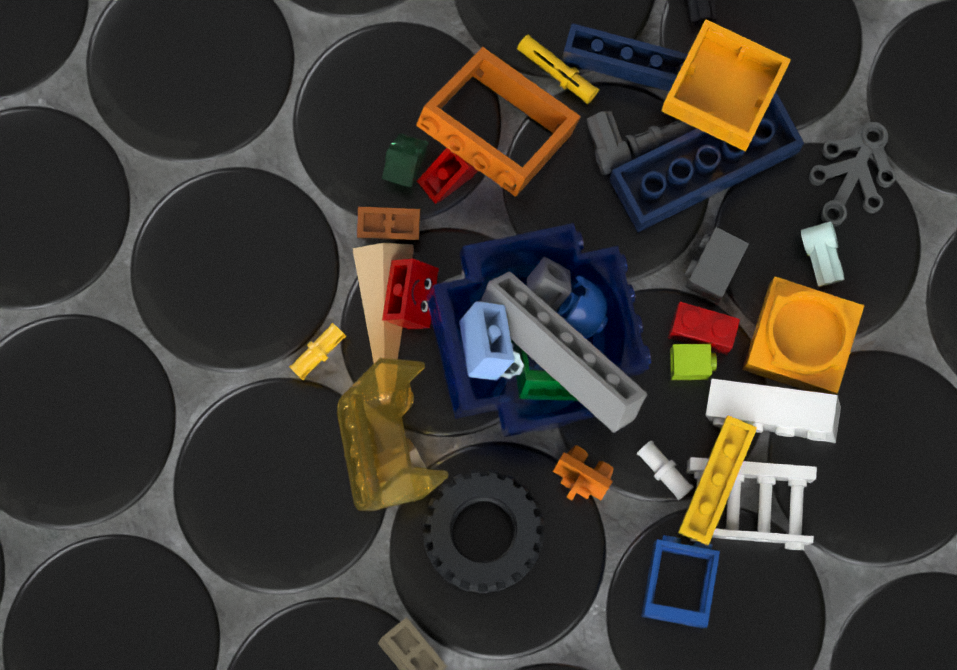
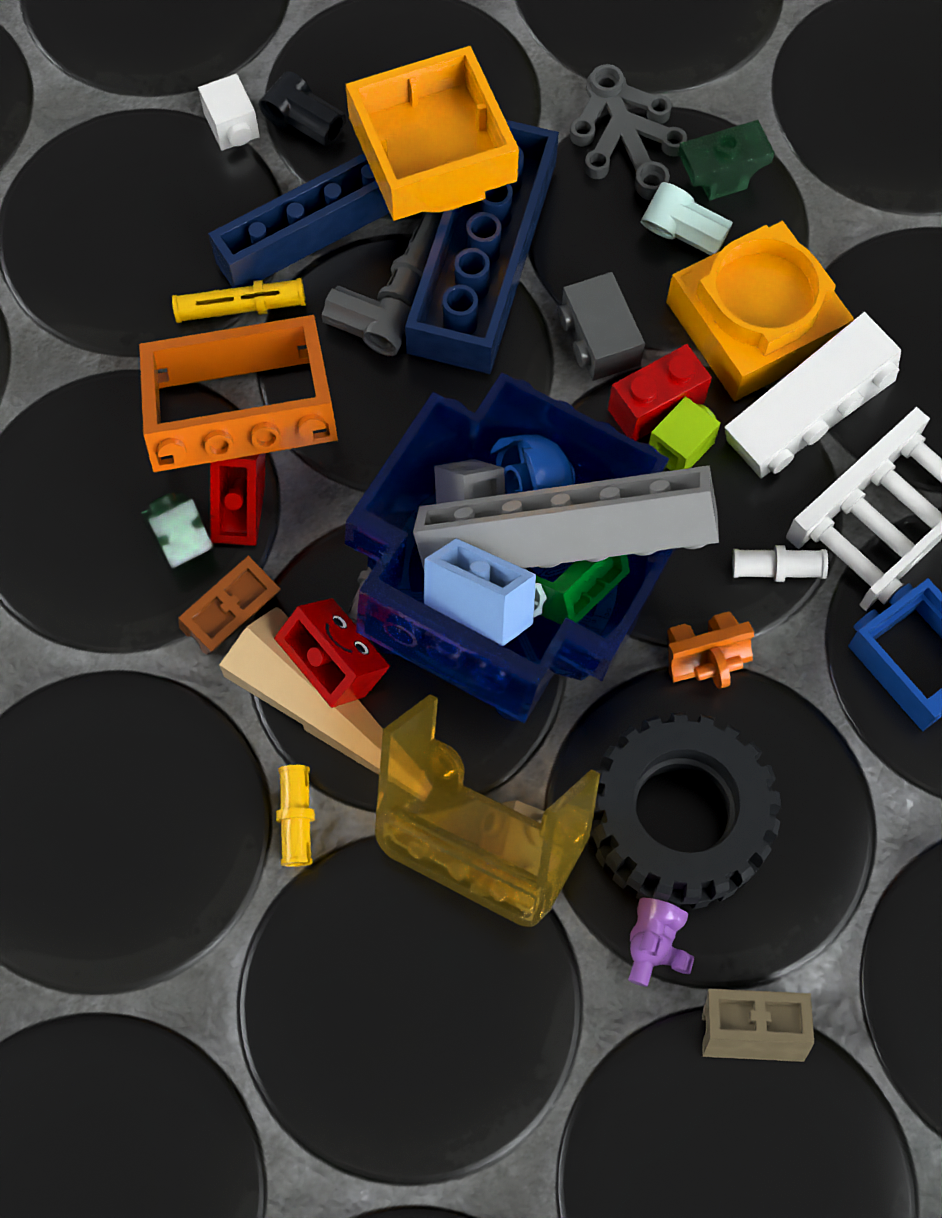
camera: 45 degrees left, 10 degrees down
(409, 572) = (653, 940): none -> medium lavender piece
(717, 480) = (849, 510): yellow plate -> none
(880, 241) = (726, 158): none -> clear green brick

